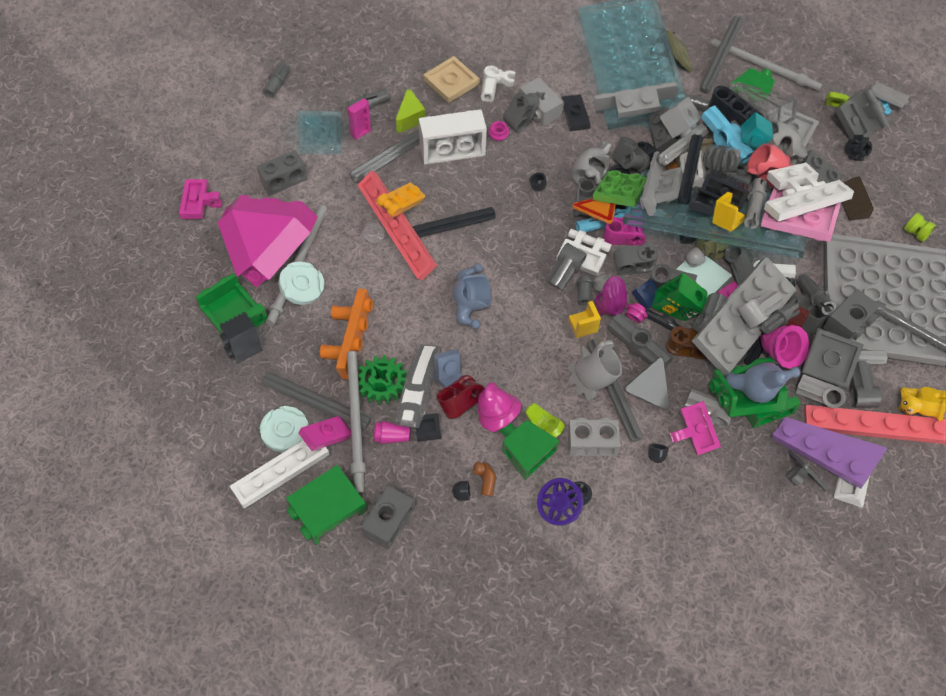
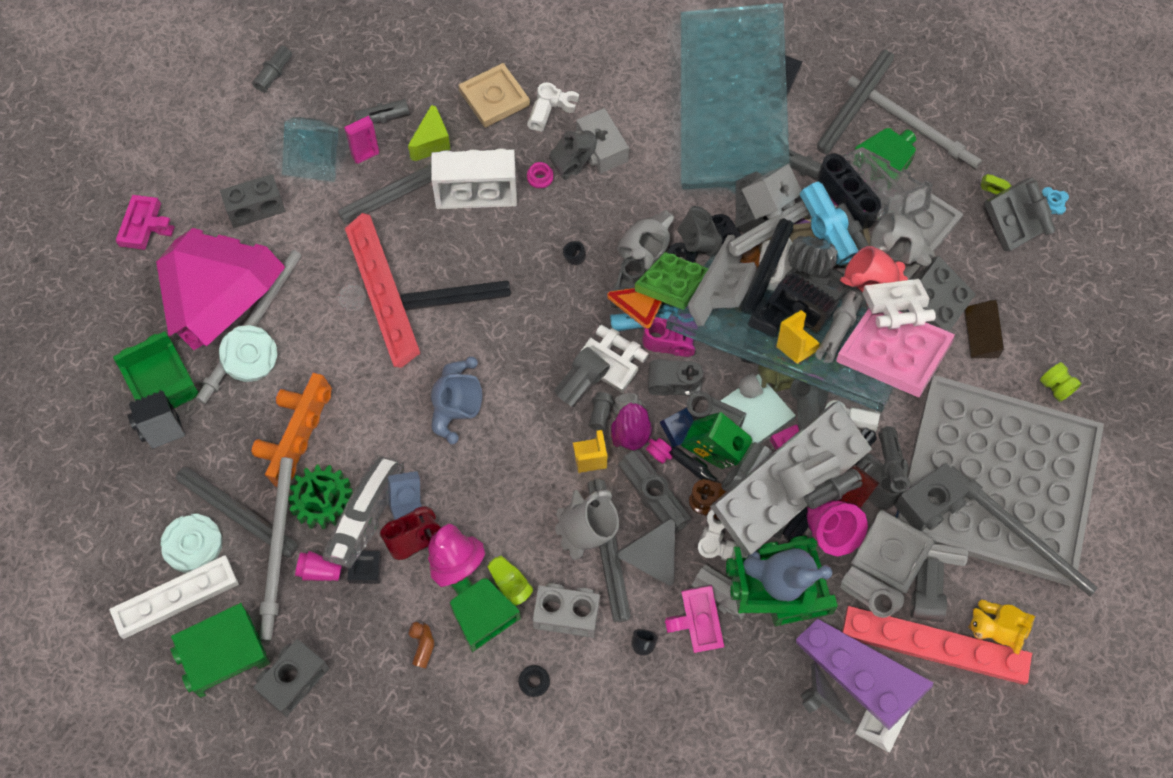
camera: 10 degrees right, 5 degrees up
(325, 433) = (236, 558): dark pink plate -> none
(401, 199) = (391, 258): light orange plate -> none
(461, 491) = (390, 656): black hinge -> none
(560, 502) = (505, 689): dark purple wheel -> none
(575, 112) = (645, 160): black plate -> none
(636, 100) = (722, 160): light grey bracket -> none
(679, 51) = (800, 91): olive piece -> none
(691, 372) = (711, 541): none -> white bar
(756, 131) = (865, 225): teal brick -> none
(808, 200) = (904, 336): white plate -> none
(858, 147) = (1006, 258): black gear -> none
(890, 95) = (1068, 187): light grey piece -> none

